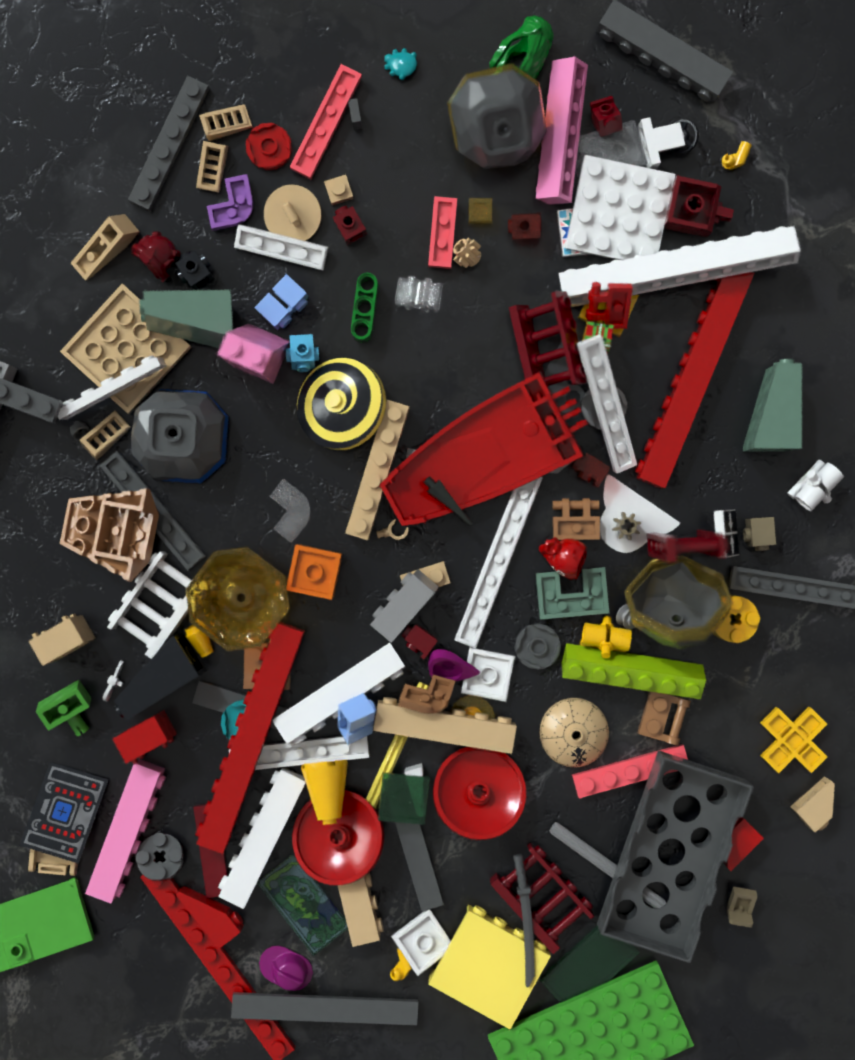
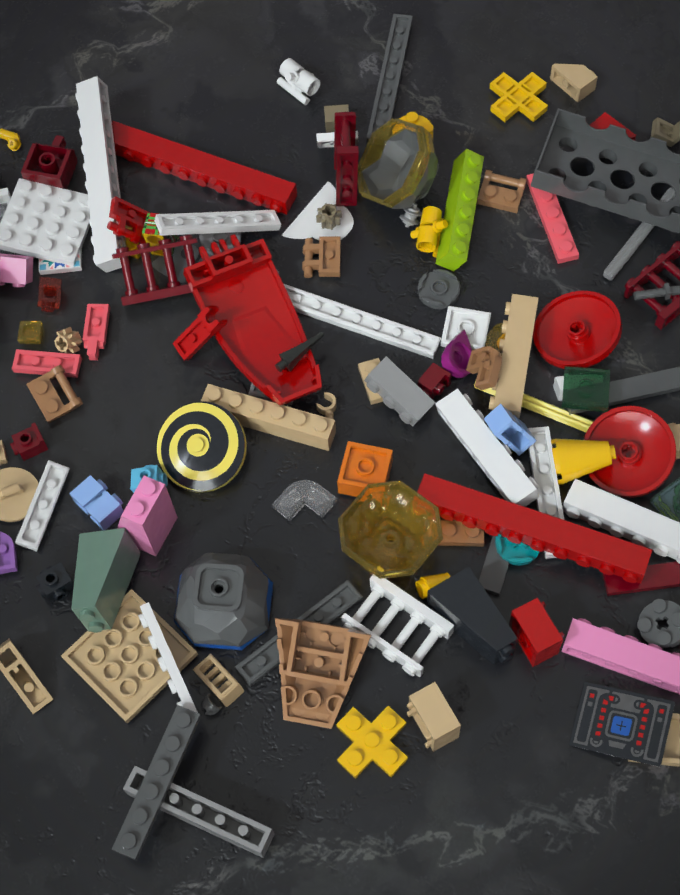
camera: 85 degrees left, 25 degrees down
(48, 581) = (371, 742): none -> yellow plate
(65, 706) = (506, 718): bright green brick -> none
(113, 681) = (478, 674): white piece -> none
(156, 253) = (32, 616): dark red helmet -> none
(364, 296) = (102, 422): green beam -> none
(401, 238) = (47, 397): none -> medium nougat plate
(418, 294) = (102, 378): clear gear -> none
(471, 393) = (199, 332): none -> red plate
(484, 280) = (95, 329): none -> coral hinge
(557, 605) = (399, 272): sand green plate -> none
(565, 556) = (355, 261): red piece -> none
(572, 716) = (516, 269): tan dish -> none
(591, 469) = (278, 242): clear red brick -> none
(778, 410) = (231, 103): sand green slope -> none

